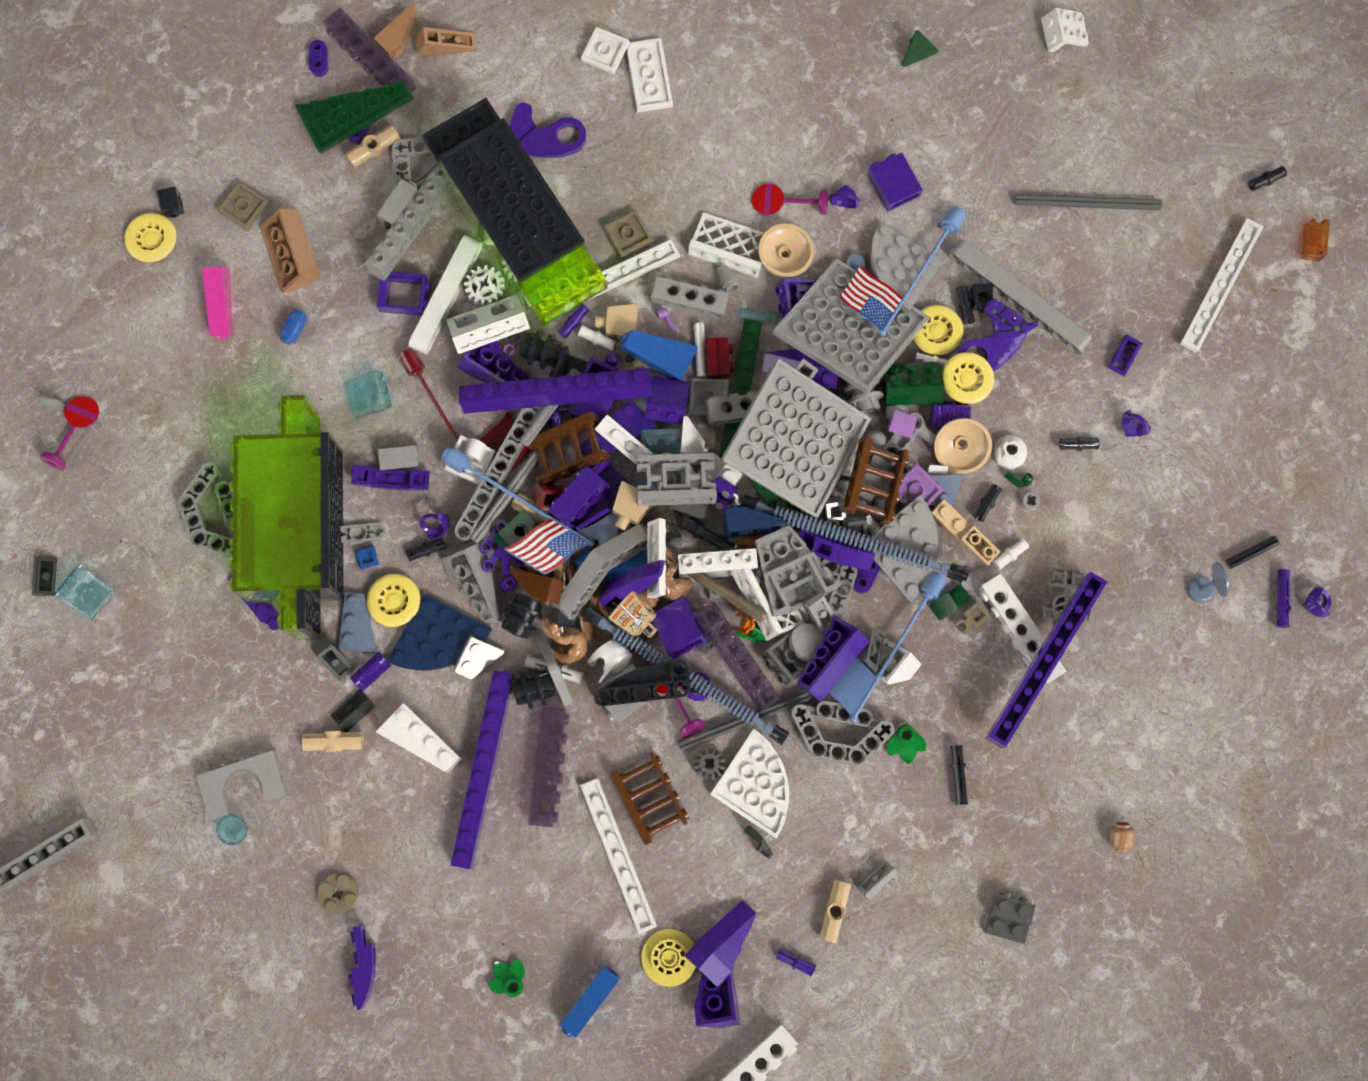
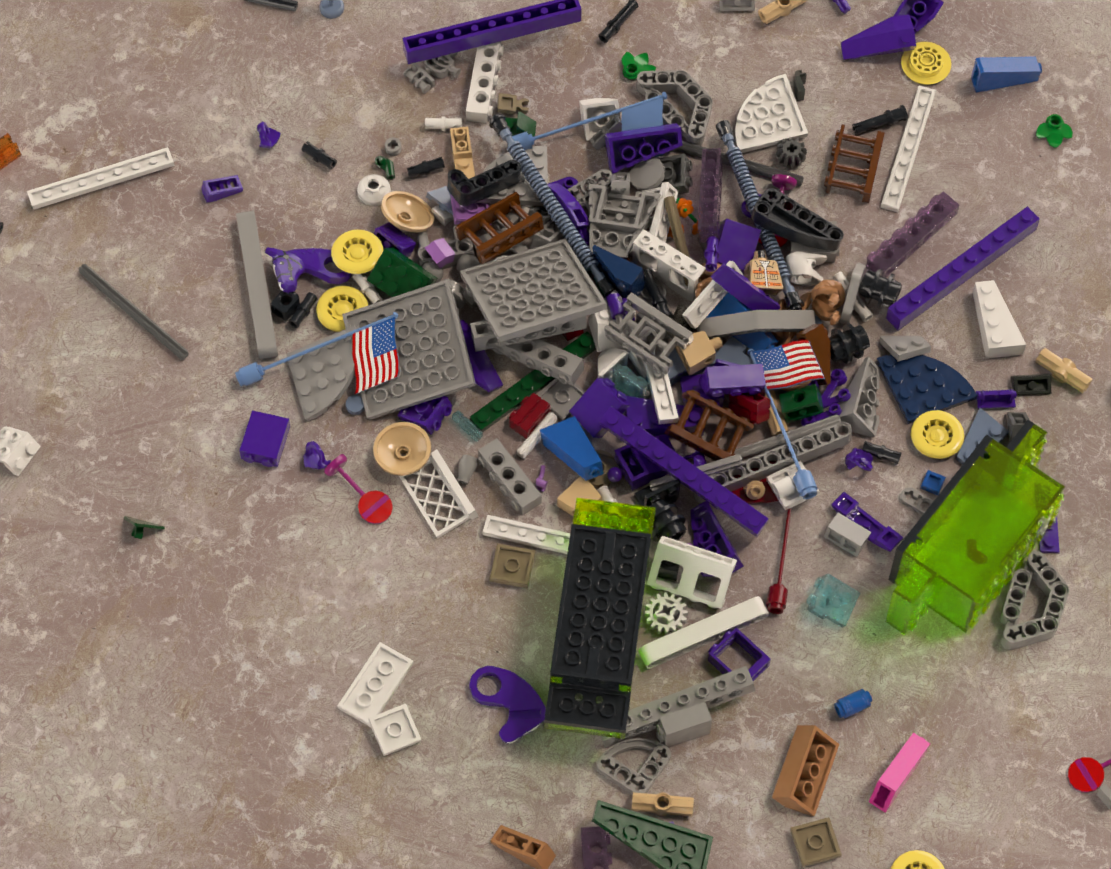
camera: 140 degrees left, 15 degrees down
(497, 435) = (754, 489): none -> tan plate
(656, 869) = (889, 118): none -> black pin
(686, 593) = (711, 254): none -> dark purple pin
(922, 512) = (483, 185): none -> black beam

